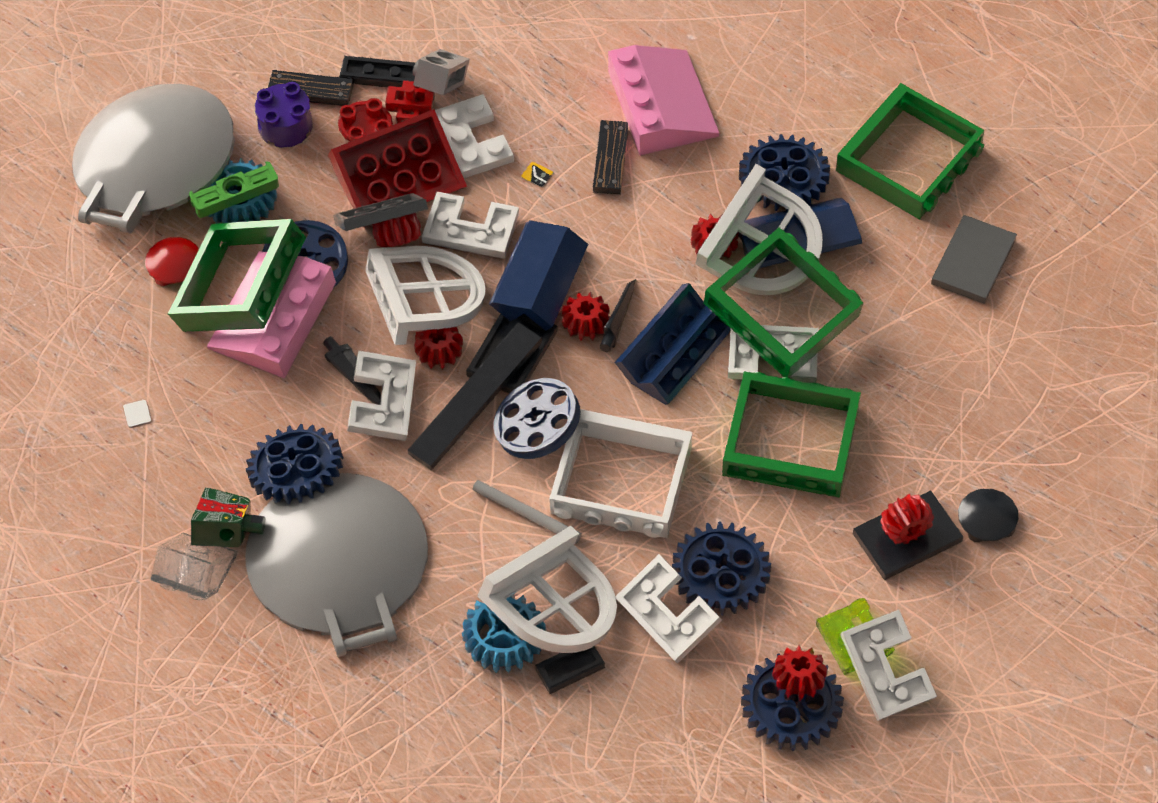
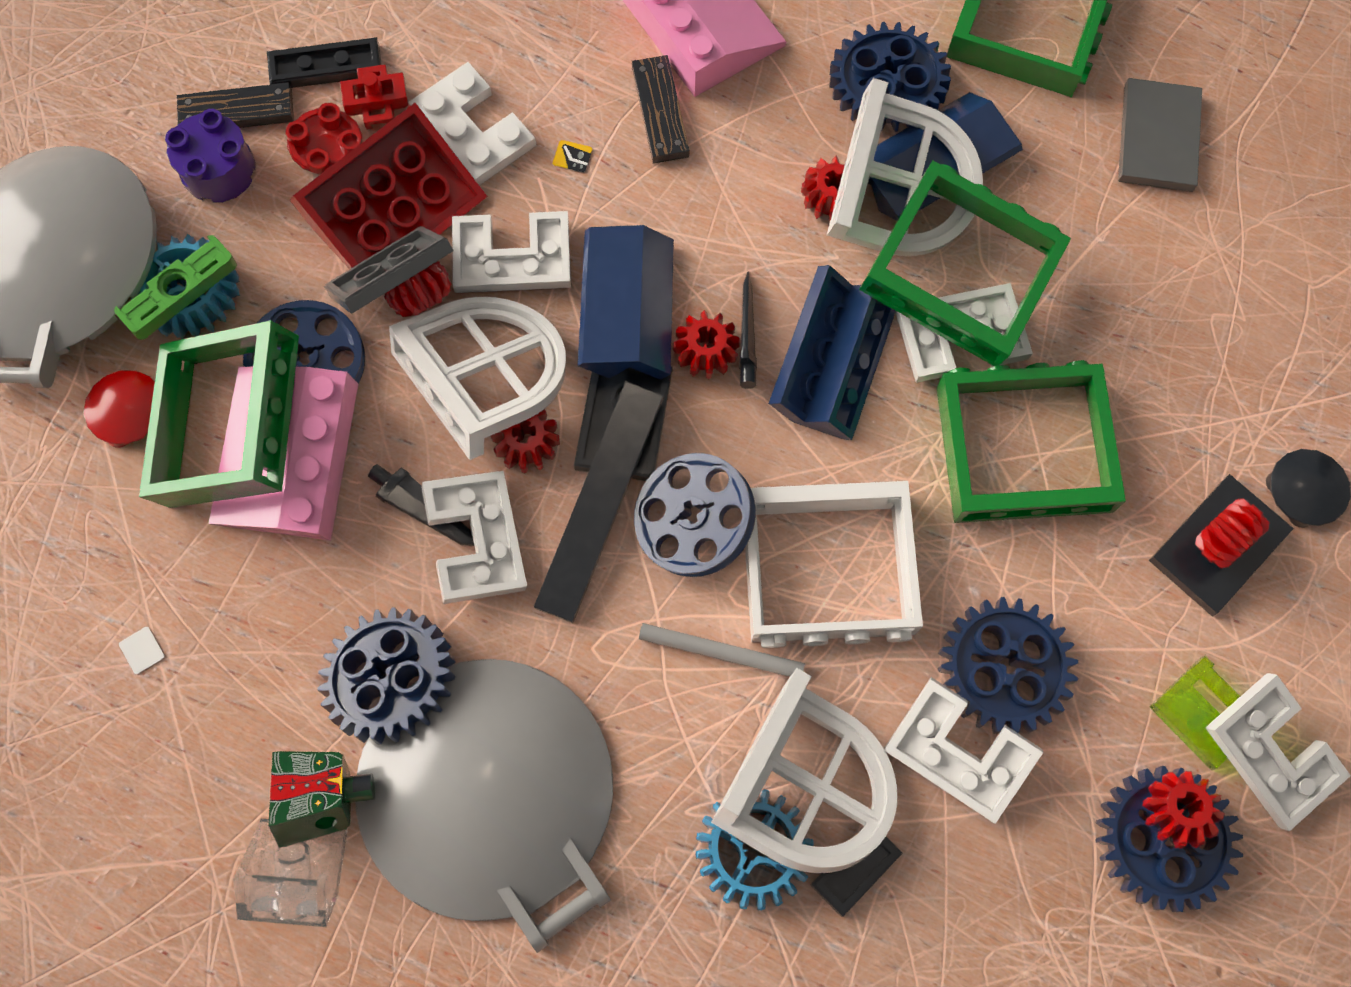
camera: 20 degrees left, 15 degrees up
(440, 71) = (403, 45): light grey brick -> none

